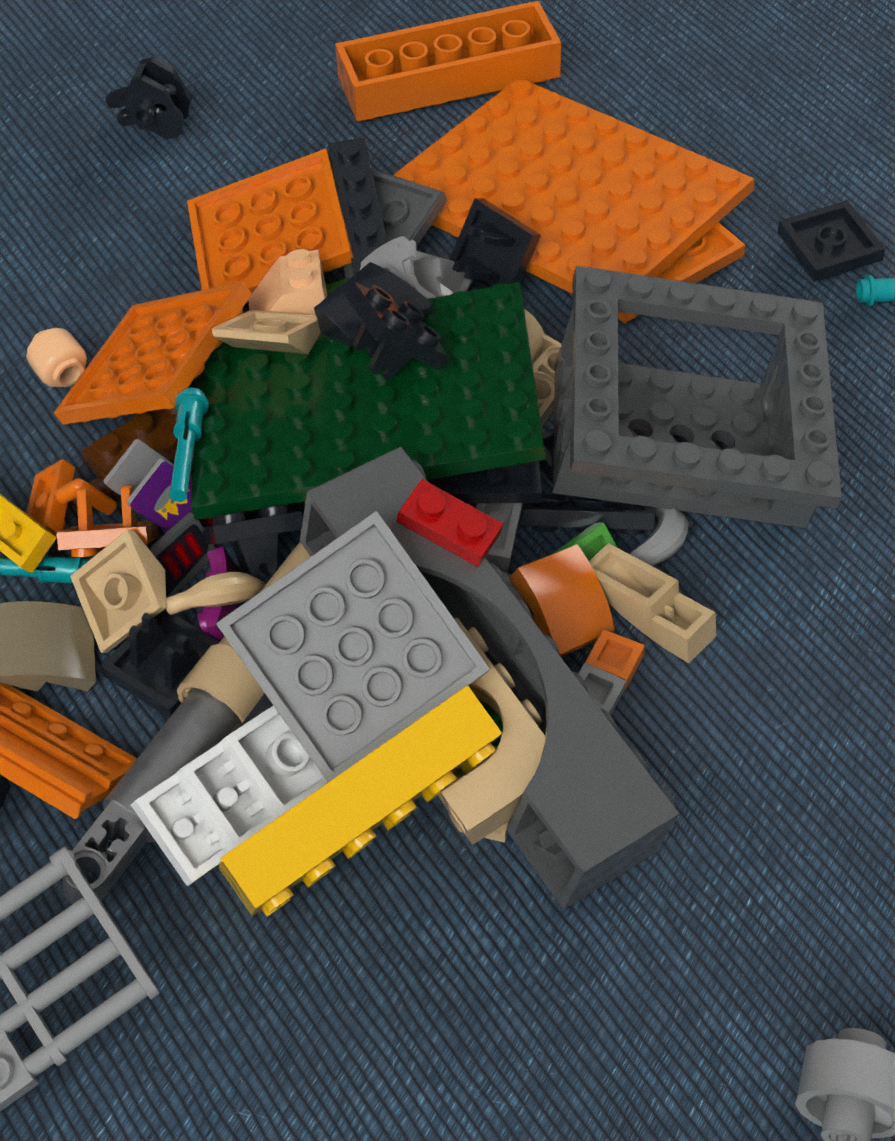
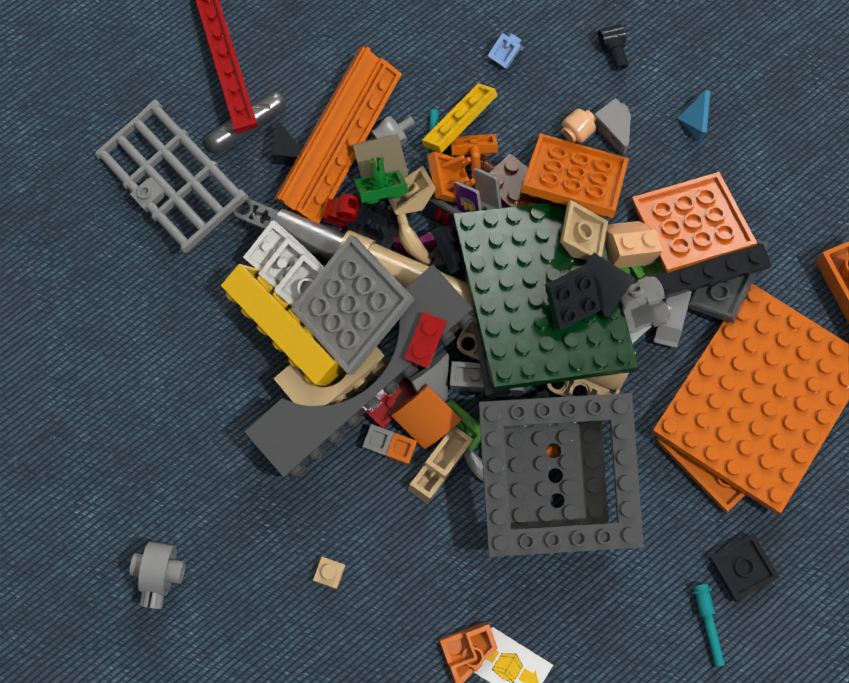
camera: 80 degrees right, 20 degrees up
(74, 307) = (614, 124): none -> light grey slope
(85, 215) = (696, 116): none -> dark azure slope
(97, 628) = (380, 184): none -> green plate
(130, 694) = (341, 210): none -> red leg
(151, 102) = (800, 133): black hinge -> none
(191, 407) = (513, 201): teal pin -> none
(493, 246) = (690, 354): black plate -> none
(846, 795) = (329, 573): none -> tan plate

